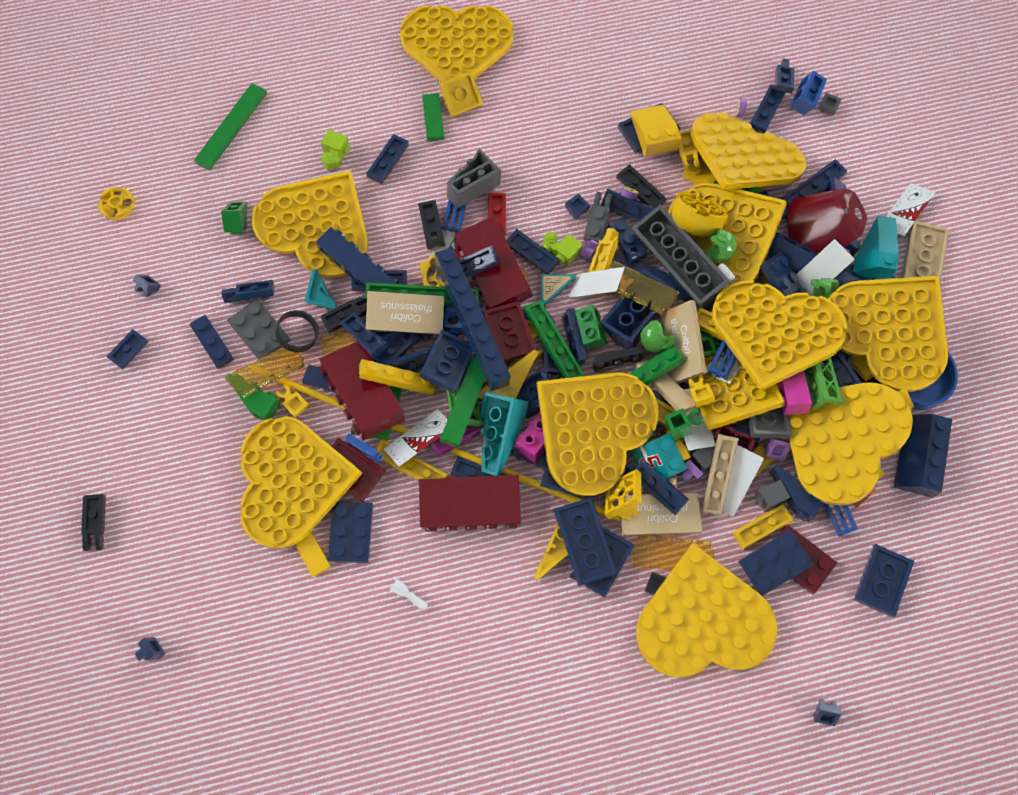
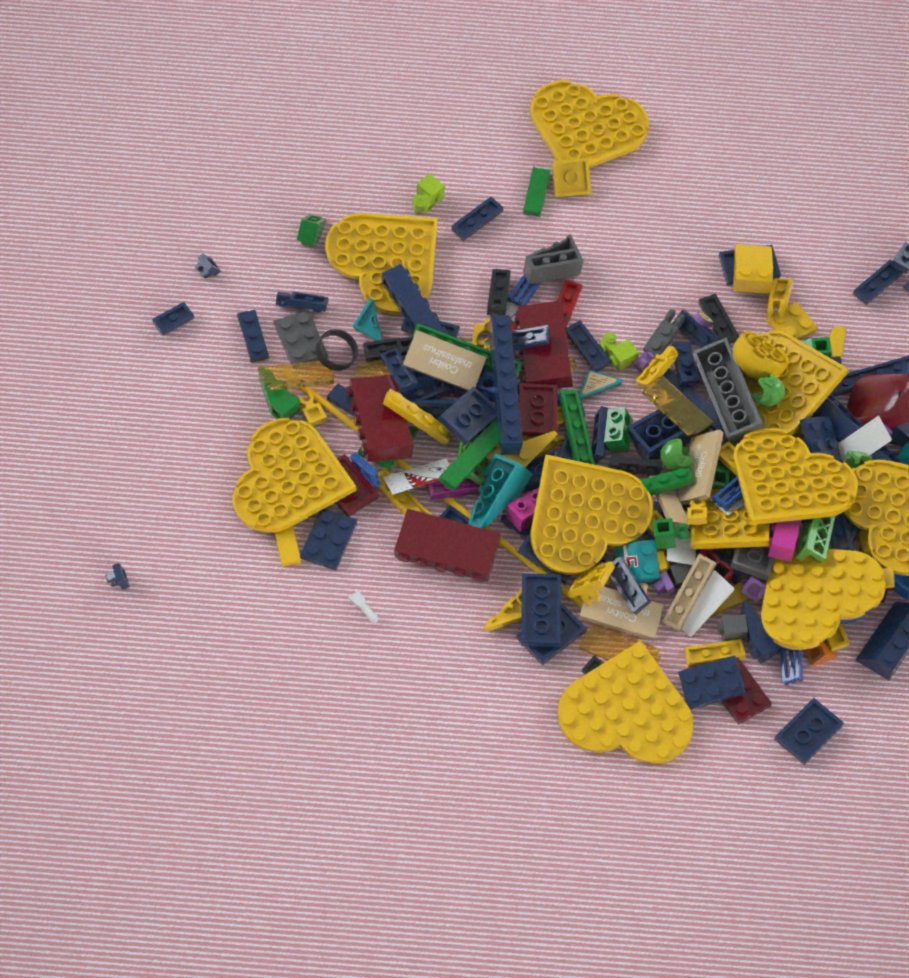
camera: 15 degrees right, 10 degrees down
(93, 520) = (99, 456): black hinge -> none
(116, 203) = (200, 183): yellow piece -> none
(230, 126) = (333, 142): green tile -> none
(577, 206) = (647, 317): dark blue tile -> none
(597, 282) = (637, 390): white sticker -> none
(727, 273) = (764, 417): white tile -> none
(741, 107) = (851, 272): medium lavender tile -> none
(742, 156) = (828, 317): yellow plate -> none
(827, 713) = (708, 818): dark blue tile -> none

